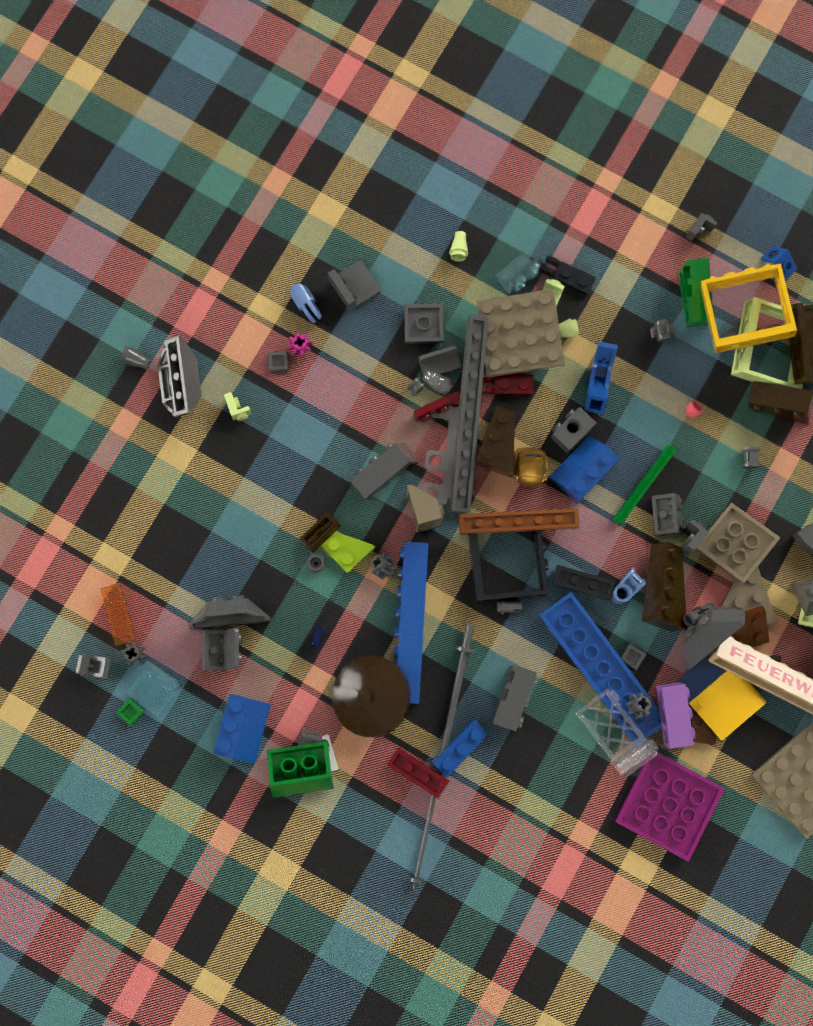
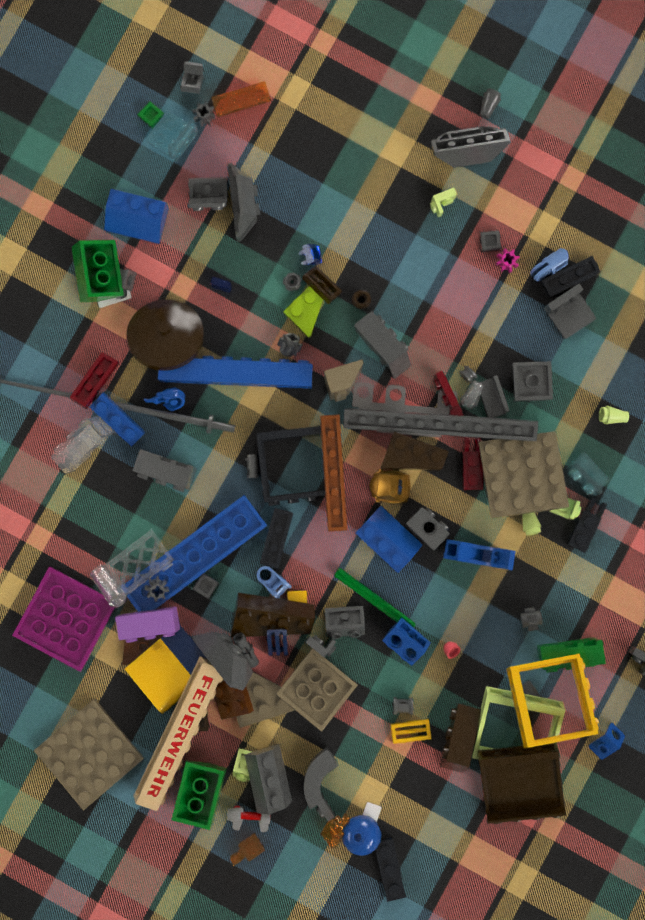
camera: 90 degrees right, 5 degrees up
(288, 541) = (312, 254): none -> clear blue tile
(318, 283) = (570, 276): none -> black plate
(336, 486) = (361, 293): none -> dark brown plate
(438, 690) = (173, 398): none -> blue piece
(486, 786) = (81, 443): none -> clear wedge
(642, 562) = (298, 596): none -> yellow tile
(687, 452) = (406, 641): none -> blue brick
(695, 581) = (277, 649): none -> dark blue tile
(770, 468) = (407, 731): none -> yellow tile

